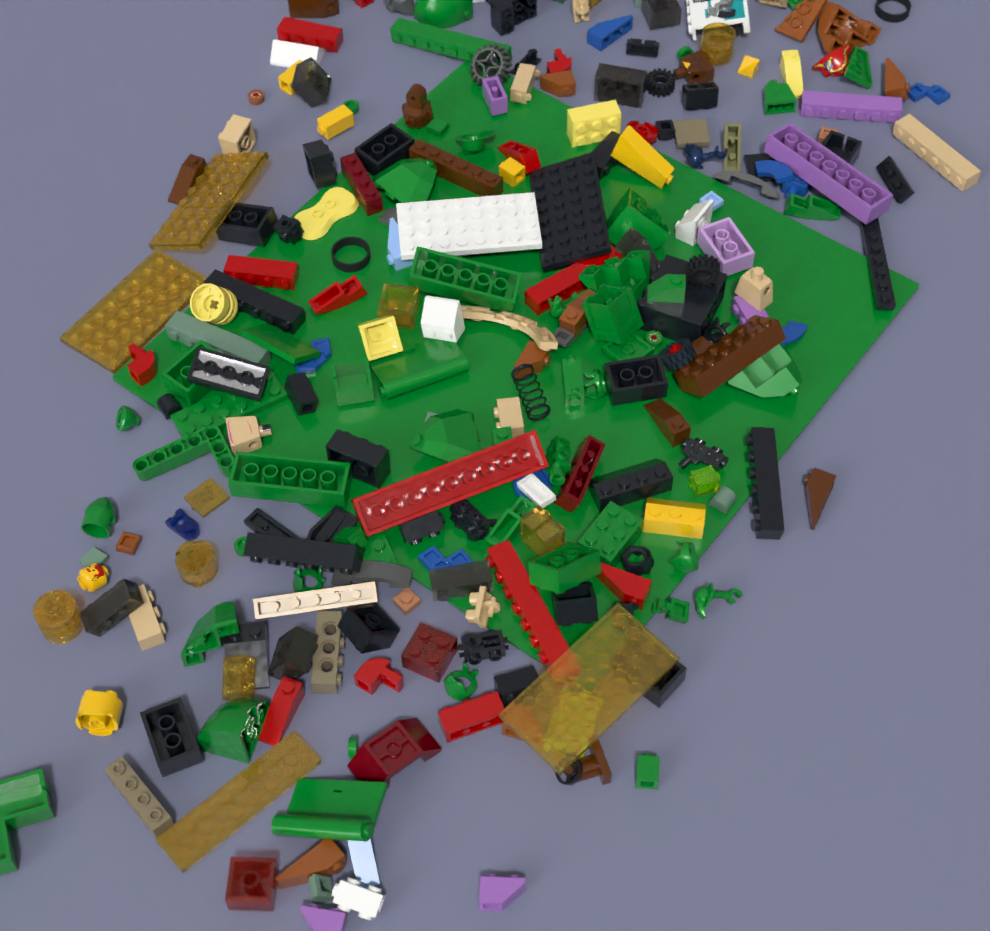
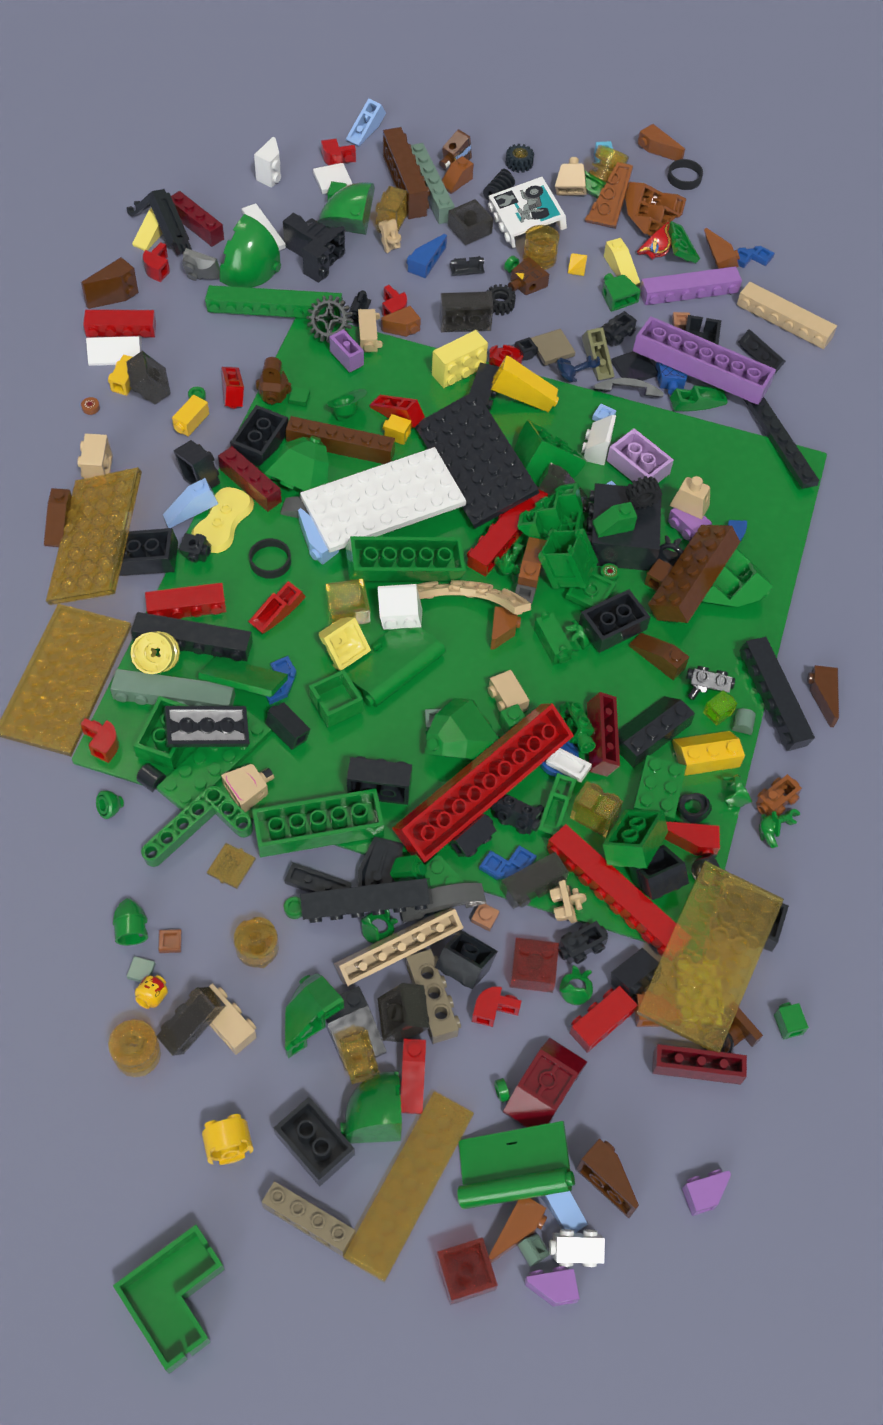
camera: 25 degrees left, 5 degrees up
(188, 529) = (228, 907): clear blue plate -> none
(305, 191) = (190, 503): none -> light blue slope
(382, 106) = (232, 387): none -> red slope
(408, 835) = (605, 1172): none -> reddish brown slope
(520, 391) = (541, 672): black piece -> none
(540, 780) = (699, 1064): none -> dark red brick
(675, 609) = (746, 846): green plate -> none
(678, 354) = (646, 584): black wheel -> none
(699, 95) = (546, 305): black brick -> none
(727, 573) = (773, 798): none -> dark orange brick
(757, 130) = (619, 328): none -> black brick
(775, 170) = (650, 367): blue tile -> none

